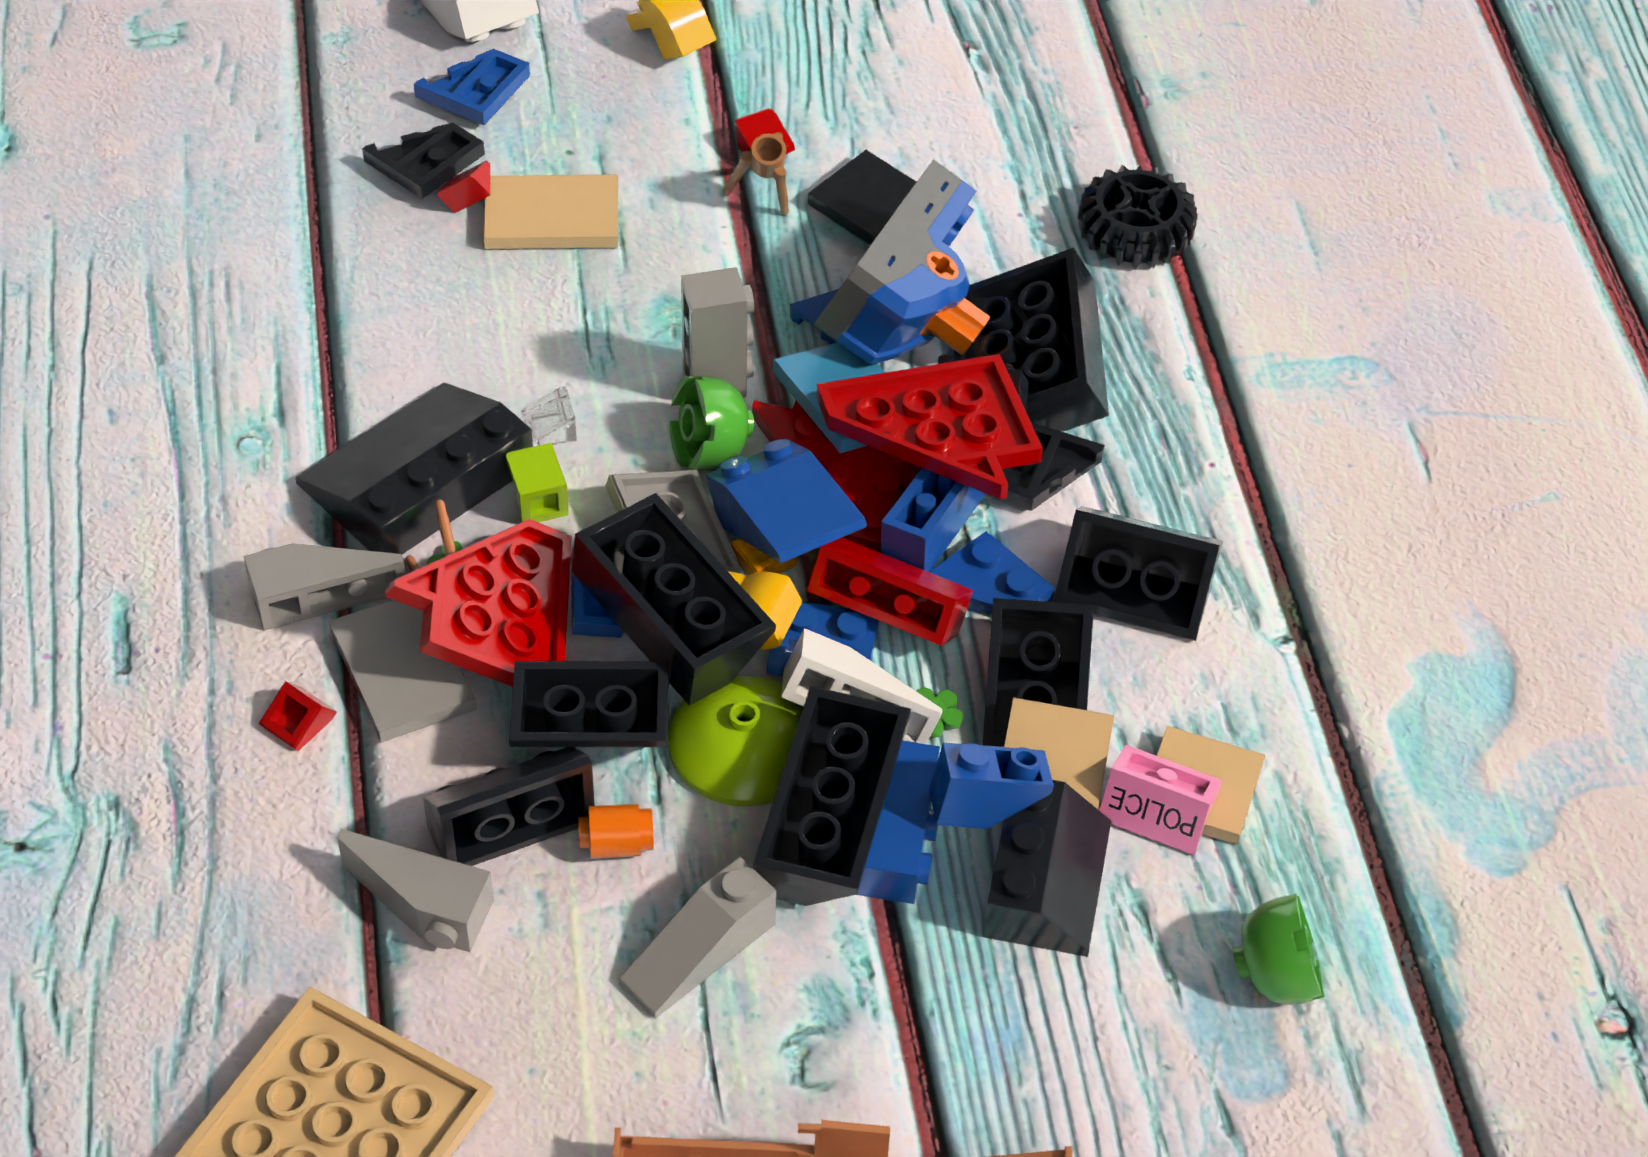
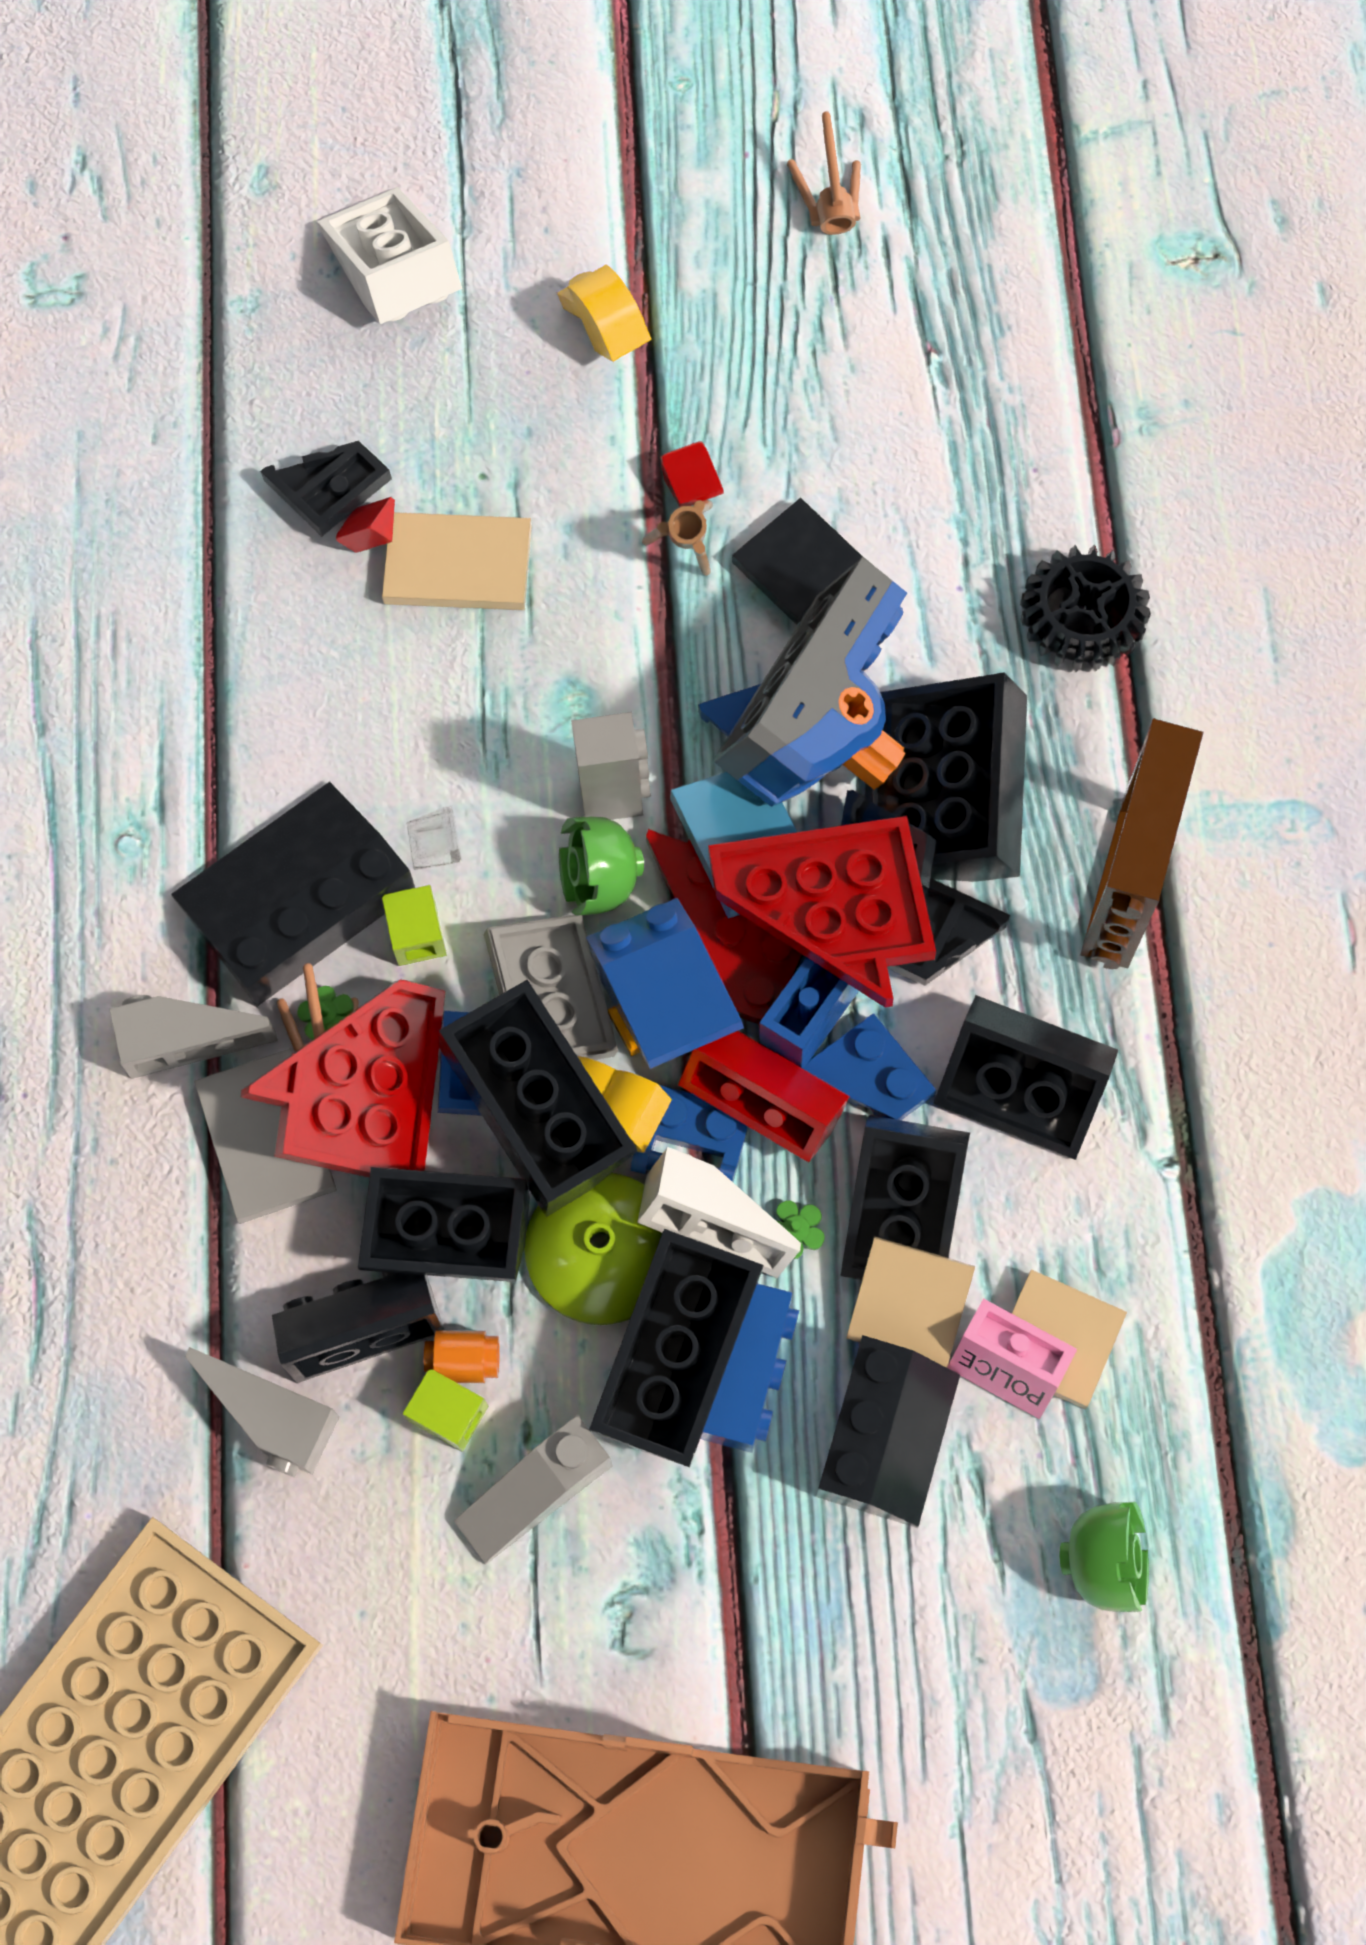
camera: 10 degrees right, 20 degrees up
(296, 715) = (159, 1187): red slope -> none
(477, 86) = (389, 386): blue wing -> none
(604, 876) = (445, 1409): none -> lime panel
(986, 783) = (833, 1357): blue slope -> none
(1220, 360) = (1141, 844): none -> reddish brown window

